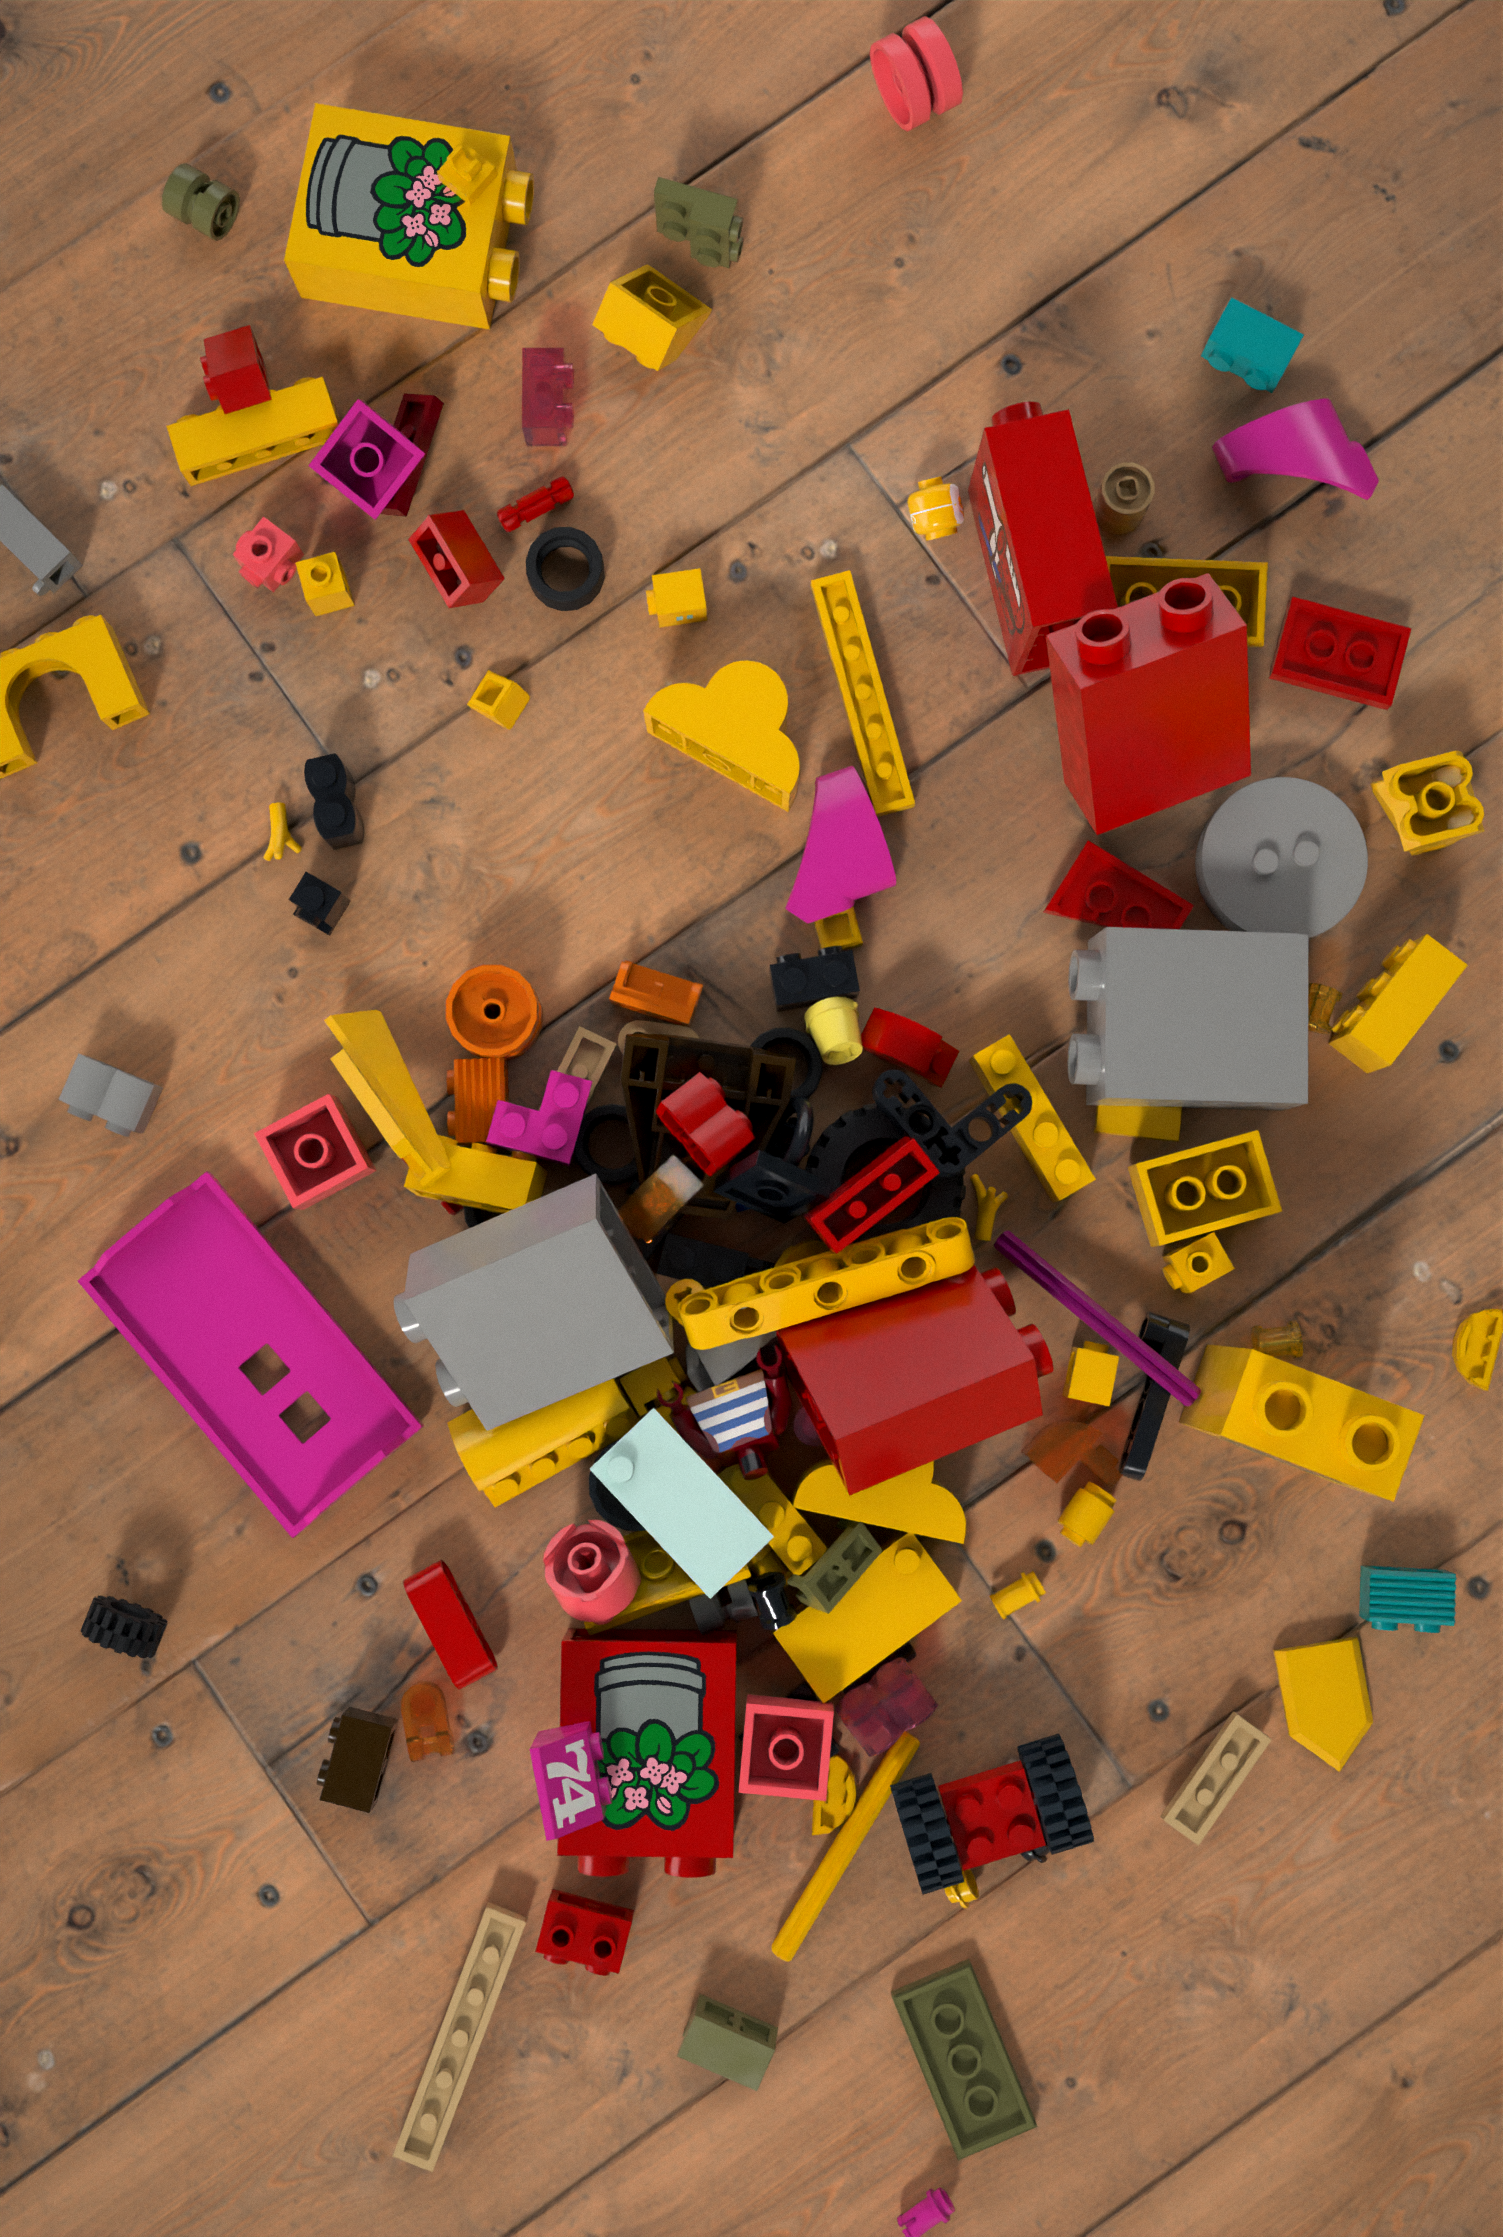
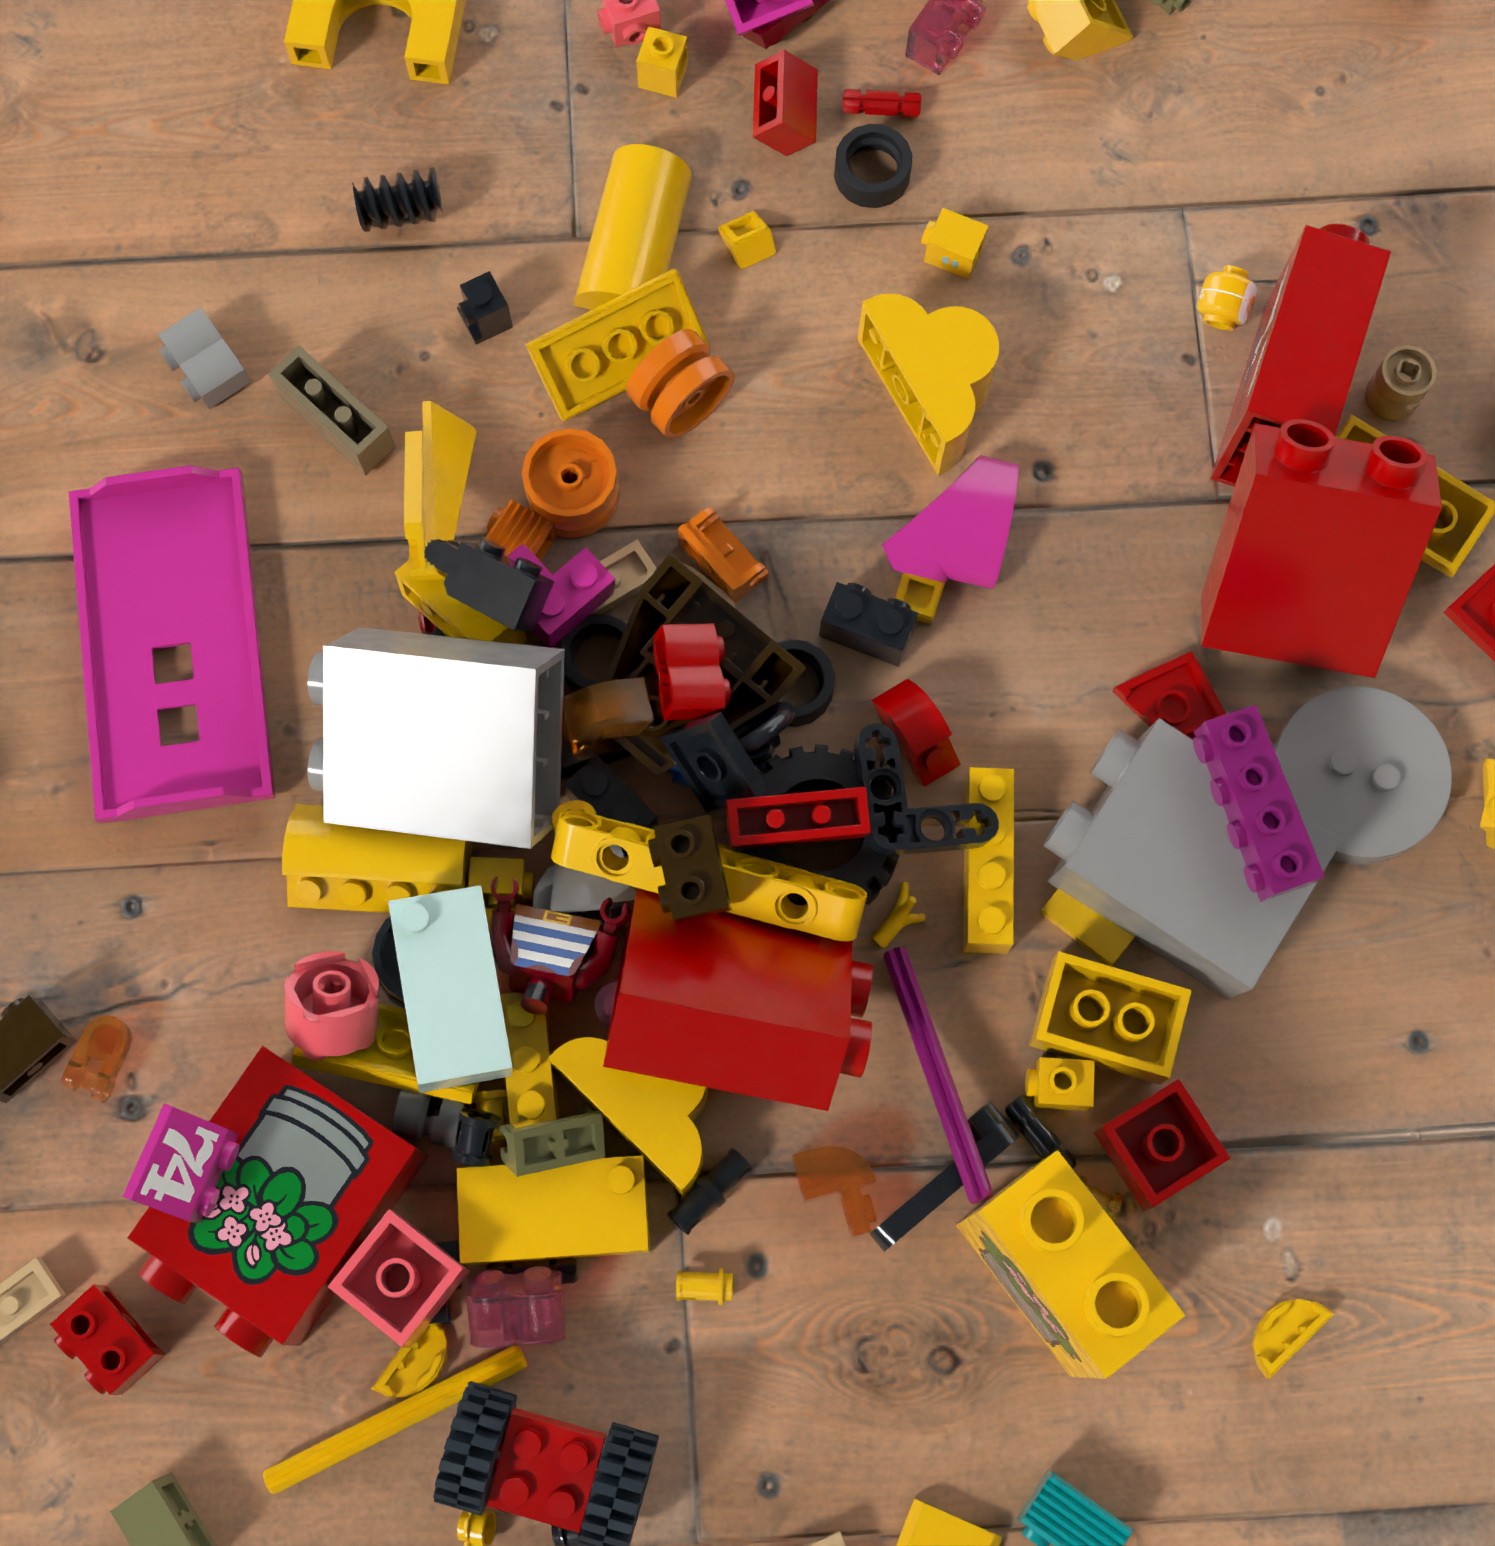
camera: 30 degrees right, 10 degrees down
(181, 851) = (397, 200): none -> black piece
(251, 1073) = (332, 410): none -> dark tan brick
(279, 833) = (491, 236): yellow bar -> none
(315, 1152) = (340, 505): coral brick -> none
(334, 796) = (552, 235): black brick -> none
(400, 755) = (634, 223): none -> yellow brick
(450, 1624) = (178, 984): red beam -> none
(454, 866) = (601, 348): none -> yellow tile
(496, 1152) = (491, 581): none -> black hinge
(530, 871) = (680, 383): none -> orange wheel
(818, 1295) = (690, 868): none -> dark brown brick
(835, 1029) = (860, 673): light yellow piece -> none
(862, 693) = (1065, 414): yellow plate -> none
(977, 1519) = (709, 1191): none -> black pin
(1086, 1514) = (815, 1251): yellow brick -> none
(1091, 1374) = (900, 1123): yellow brick -> none
(1203, 1313) = (1036, 1129): none -> black axle
(1228, 953) = (1257, 803): none -> magenta brick
(1303, 1265) = (1161, 1145): none -> red brick
(1320, 1007) = (1316, 925): clear yellow bush -> none
(1396, 1003) = (1391, 957): yellow brick -> none

